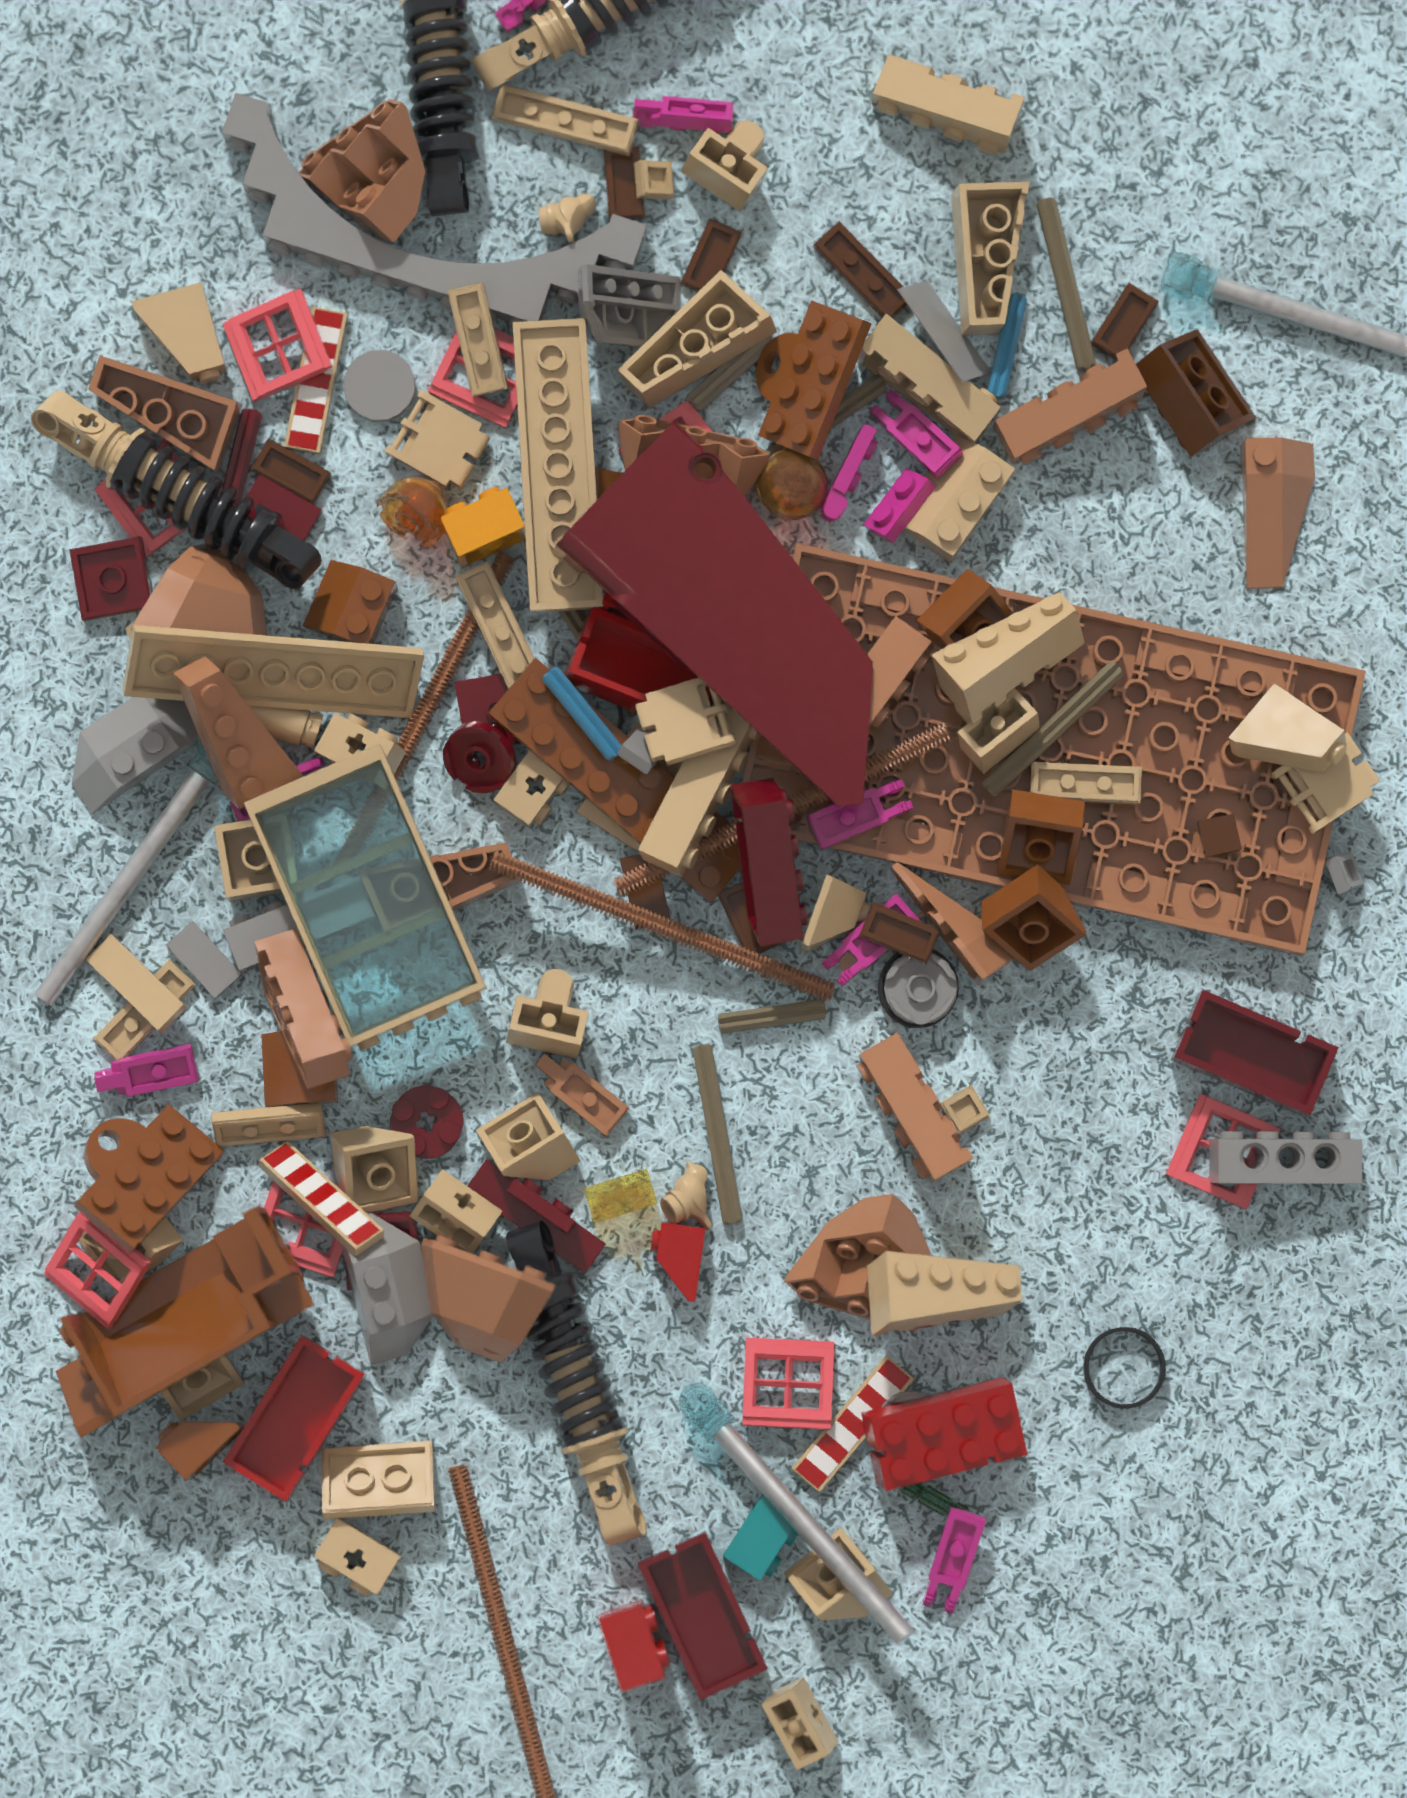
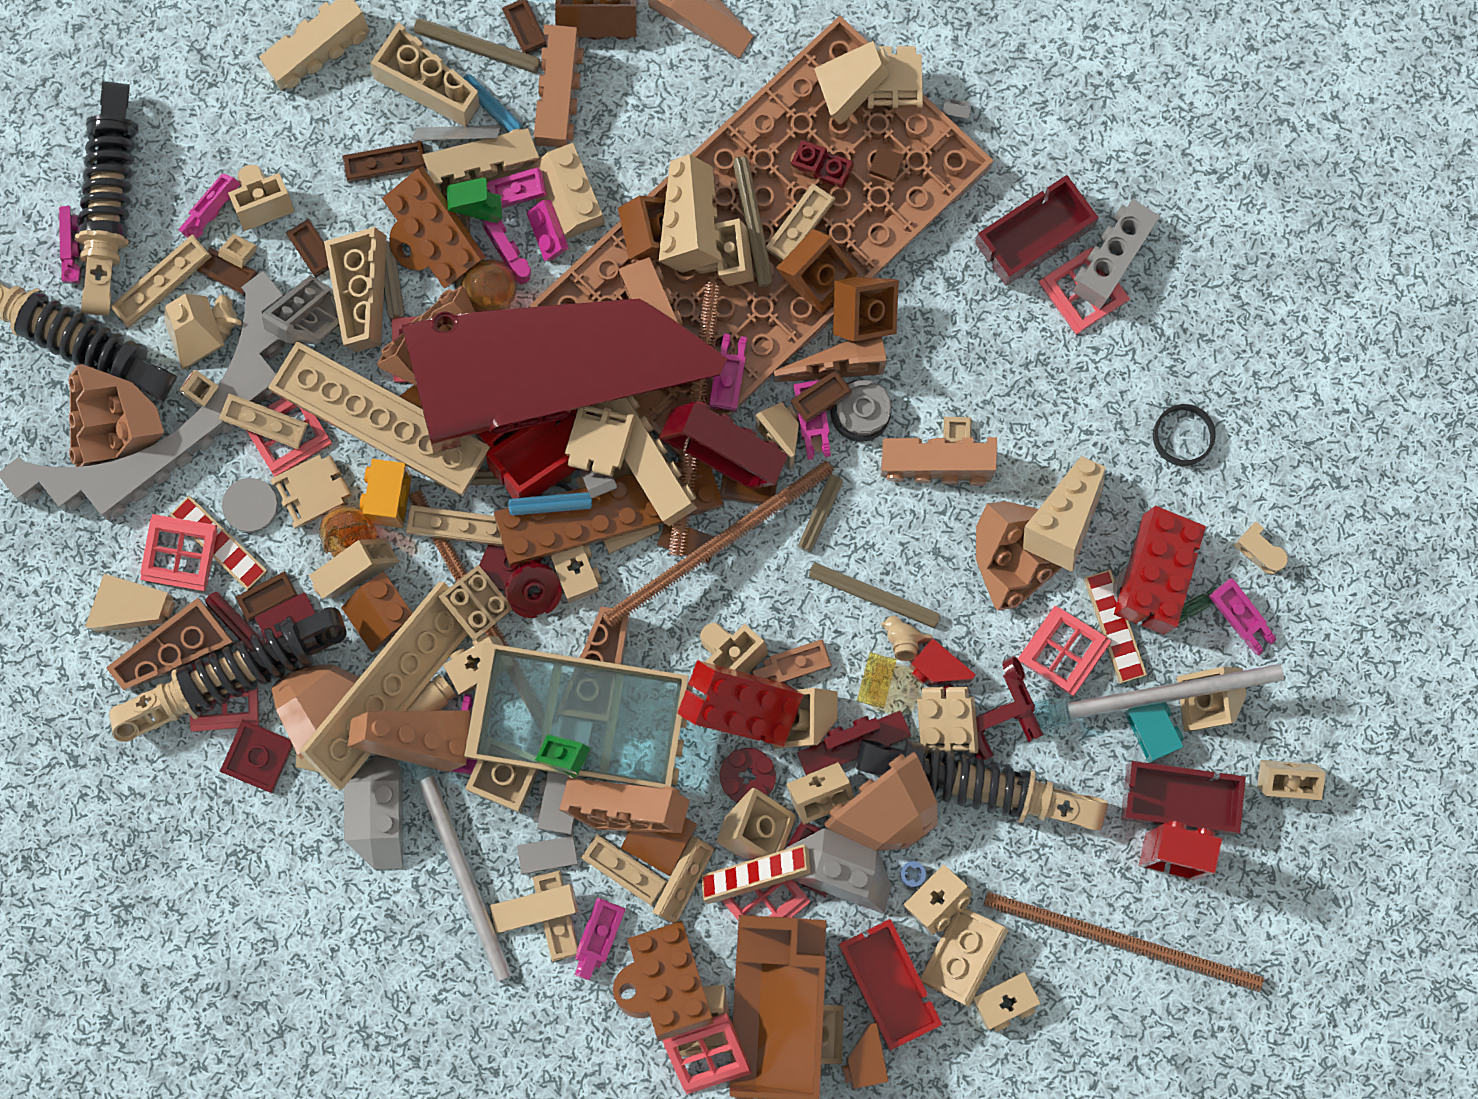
camera: 55 degrees left, 5 degrees down
(239, 1053) = (624, 870): none -> tan tile
(309, 907) = (563, 755): none -> green slope
(381, 545) = (353, 567): none -> tan slope
(406, 1402) = (942, 886): none -> tan brick
(424, 703) = (475, 602): none -> tan slope
(444, 1365) = (913, 864): none -> medium blue bush
(467, 244) = (198, 388): none -> tan leg
(492, 1063) = (740, 703): none -> red piece
(531, 193) = (192, 329): none -> tan slope
(625, 1301) = (947, 719): none -> tan plate
(637, 1336) = (1020, 708): none -> dark red connector
(872, 405) = (473, 200): none -> green slope
(1042, 1534) = (1260, 551): none -> tan leg
(1171, 763) = (822, 165): none -> dark red slope

